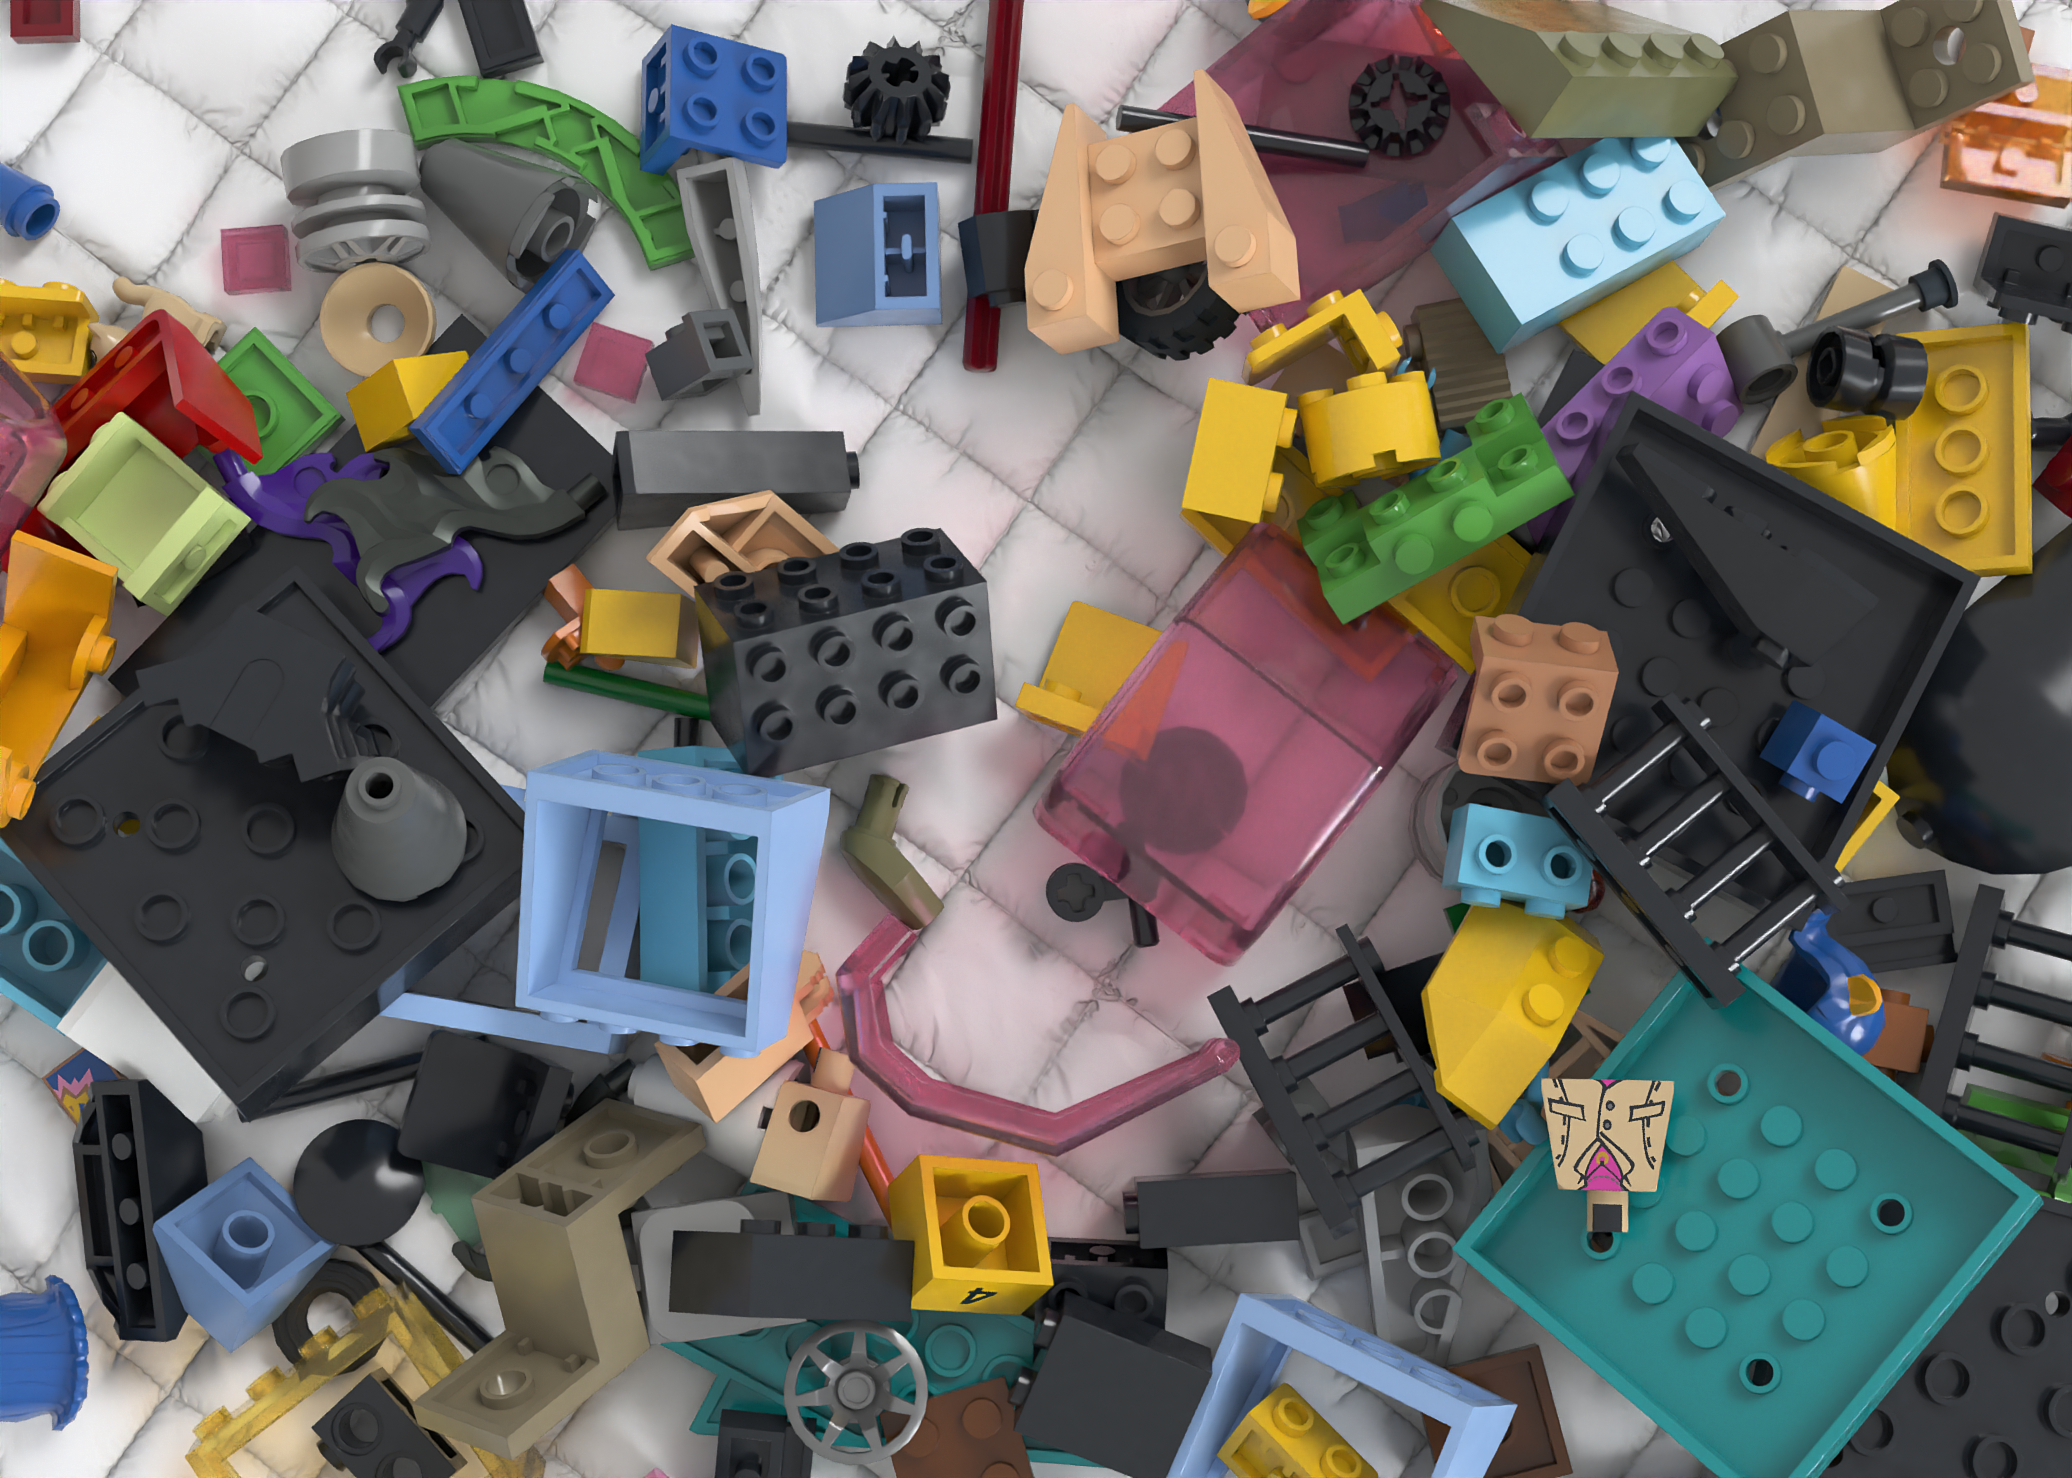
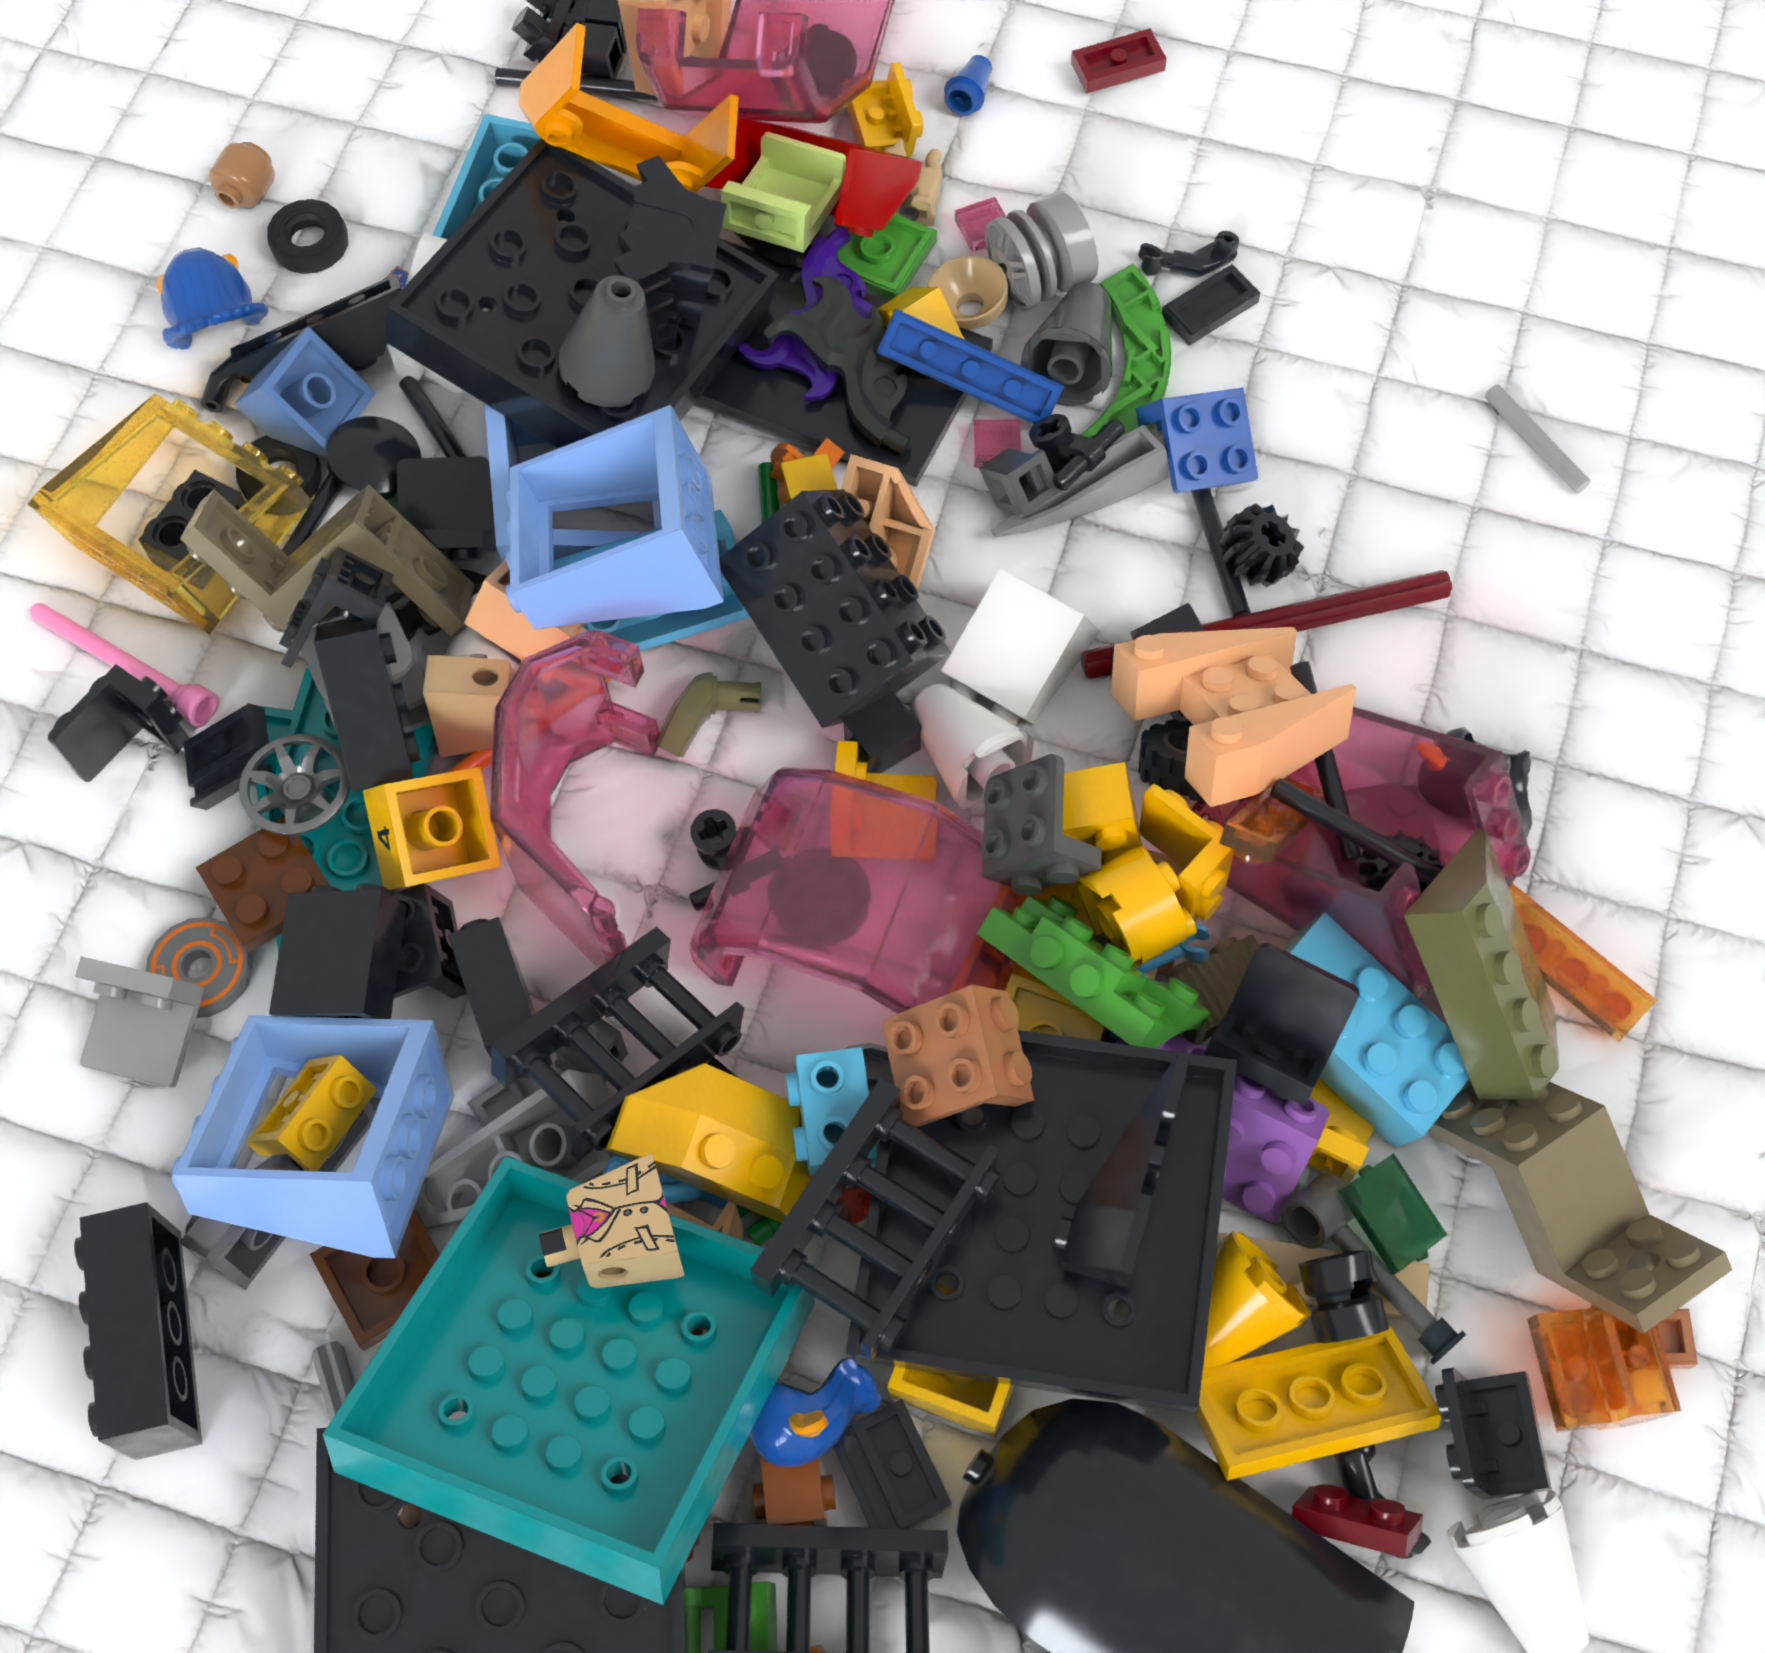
camera: 70 degrees right, 20 degrees down
(153, 1369) = (219, 386): none -> black arm
(650, 1269) = (348, 583): none -> black bracket
(670, 471) = (958, 553): slope -> none
(674, 285) = (1069, 452): none -> black piece
(879, 256) = (1139, 576): medium blue slope -> none
(941, 438) = (1018, 648): none -> white slope
(1012, 650) = (883, 733): none -> black brick
(1058, 546) = (968, 742): none -> white cone
(1244, 518) = (1024, 830): none -> dark grey bracket
(1334, 236) = (1266, 825): none -> clear orange plate
(1373, 136) = (1352, 830): none -> black bar
(1583, 324) = (1284, 1022): none -> black bracket
(1784, 281) = (1392, 1213): none -> clear green piece
(1816, 753) = (996, 1310): blue brick -> none

